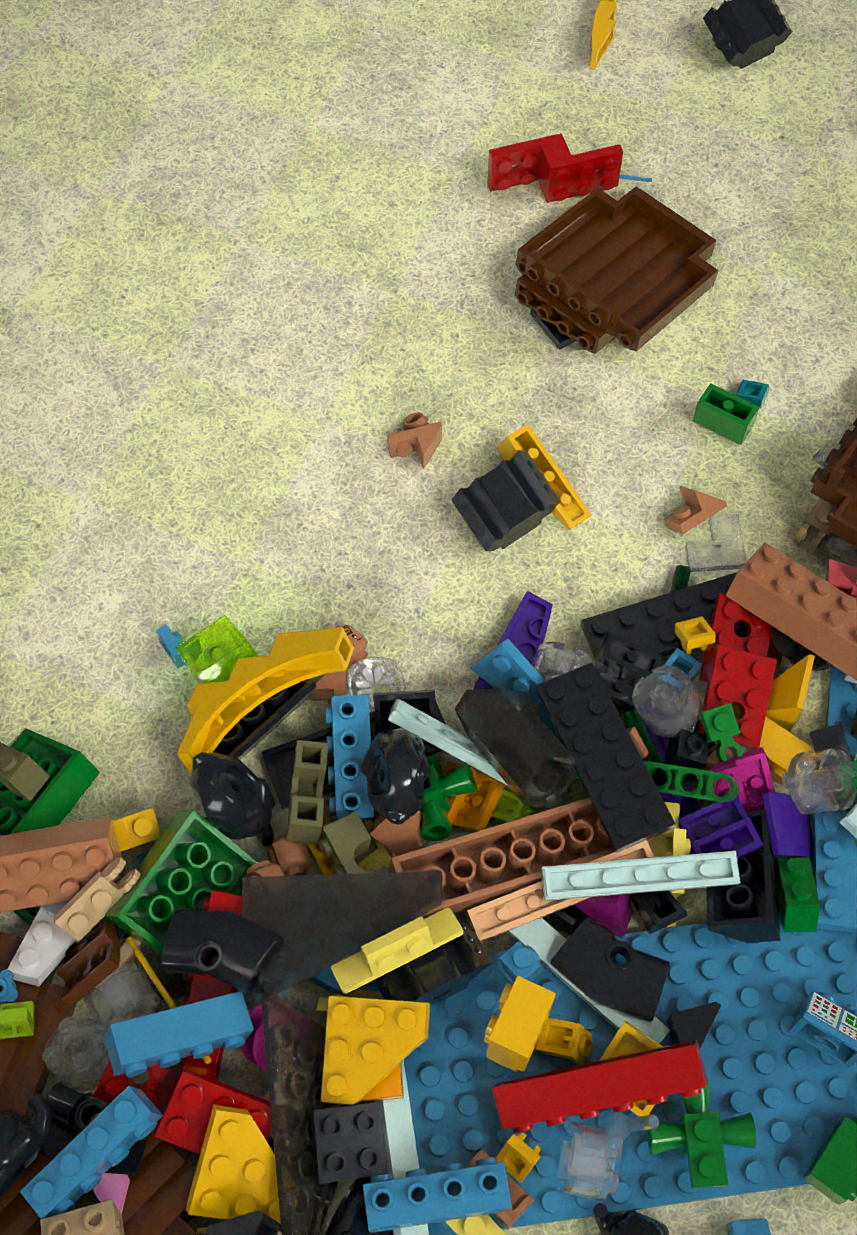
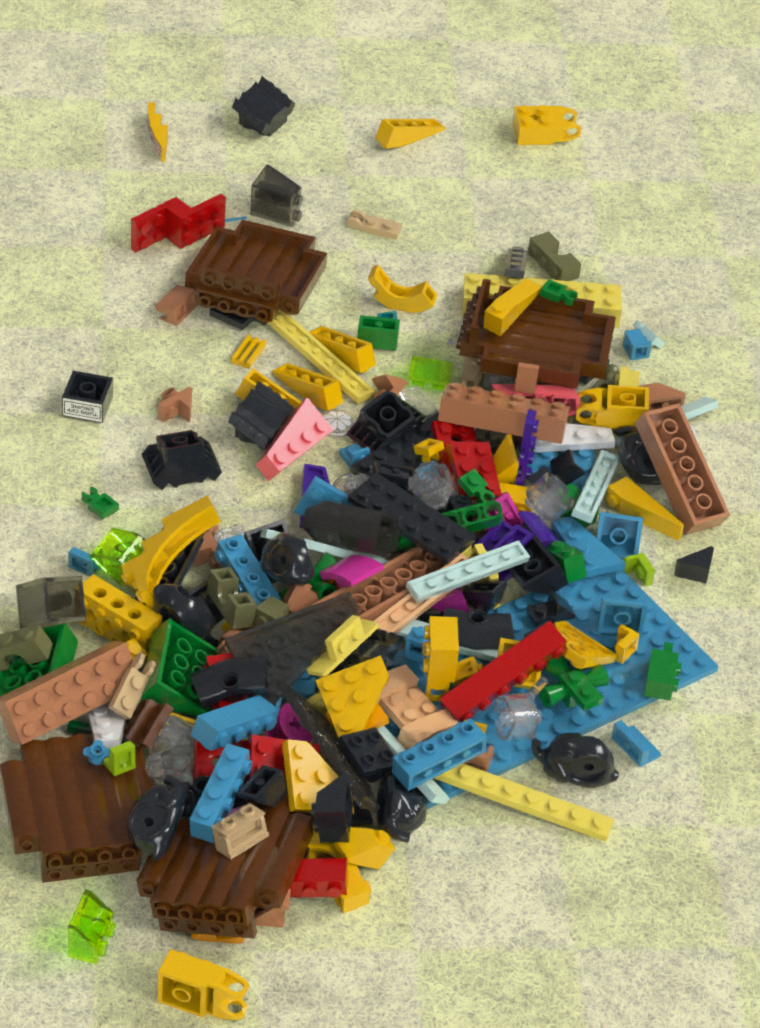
camera: 30 degrees left, 20 degrees down
(81, 713) = (51, 601): none -> clear smoke slope
(151, 1172) = (265, 786): none -> black slope
(155, 758) = (118, 615): none -> yellow brick
(244, 562) = (101, 504): none -> green plate
(310, 393) = (87, 396): none -> black brick
(376, 529) = (180, 459): none -> black slope
(456, 1077) = (412, 709): none -> light nougat piece
(480, 814) = (352, 570): none -> dark pink slope
(493, 287) = (177, 304): none -> nougat hinge
(535, 548) = (296, 437): none -> wedge
(543, 378) = (261, 345): none -> yellow tile
(600, 468) = (320, 389): none -> yellow slope
(602, 596) = (353, 453): none -> dark azure bracket
(605, 536) = (340, 421): none -> dish
(637, 428) = (321, 357): none -> light yellow plate
(662, 564) = (384, 421): none -> black slope
(673, 423) = (350, 350): none -> yellow slope
(694, 165) = (276, 197): none -> clear smoke slope
(736, 972) = (554, 610): none -> black slope
(742, 1067) = (582, 649): none -> yellow plate
(767, 498) = (431, 372): none -> clear neon green slope
(778, 360) = (398, 297): none -> yellow arch
(808, 240) = (374, 225): none -> tan hinge
(812, 1086) = (626, 643): none -> yellow bracket
(823, 693) = (528, 442): none -> dark purple wing

